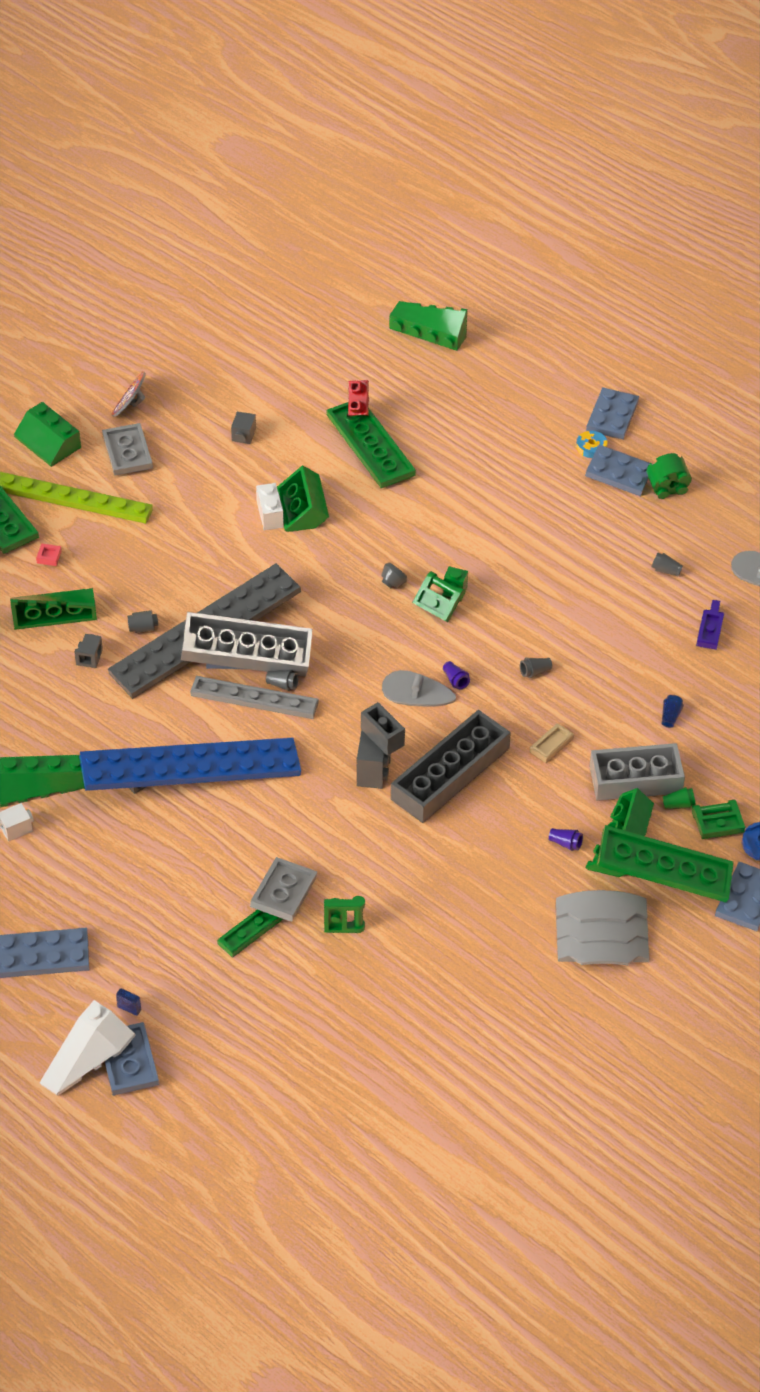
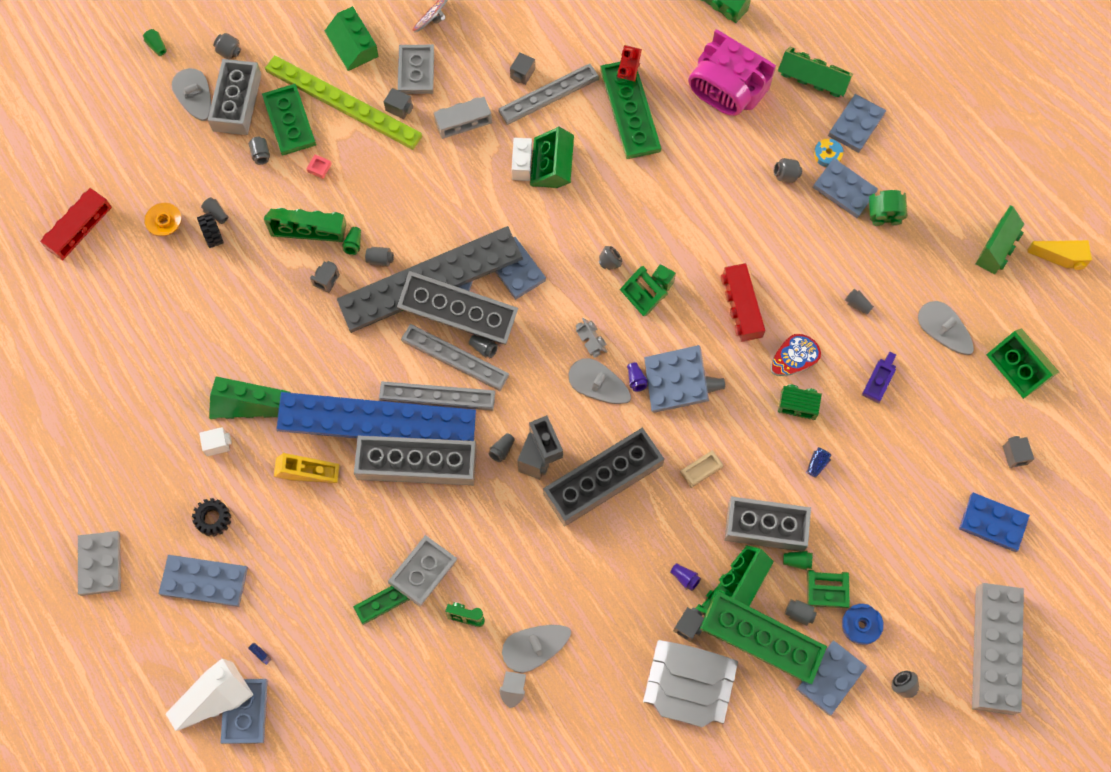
camera: 15 degrees right, 20 degrees up
(33, 881) = (203, 509): none -> black tyre
(108, 615) = (352, 241): none -> green cone
(118, 482) = (398, 103): none -> dark grey brick
(121, 826) = (305, 469): none -> yellow slope
(193, 482) = (463, 117): none -> light grey brick
(244, 791) = (415, 460): none -> light grey brick
(278, 447) = (548, 94): none -> light grey tile
(297, 728) = (437, 395): none -> light grey tile
(302, 610) = (522, 275): none -> sand blue plate
(332, 766) = (501, 448): none -> dark grey cone
(391, 644) = (595, 343): none -> light grey hinge
(416, 976) = (513, 688): none -> light grey tile
(425, 936) = (534, 646): none -> light grey shield
(469, 391) = (730, 76): none -> dark pink brick
(499, 666) = (676, 379): none -> sand blue plate
(546, 588) = (743, 302): none -> red brick
(554, 465) = (787, 170): none -> dark grey head
(555, 374) = (814, 72): none -> green wedge
(584, 877) = (689, 624): none -> dark grey brick
(616, 622) = (795, 355): none -> shield
(634, 662) = (799, 402): none -> green brick
(697, 841) = (800, 612): none -> dark grey brick

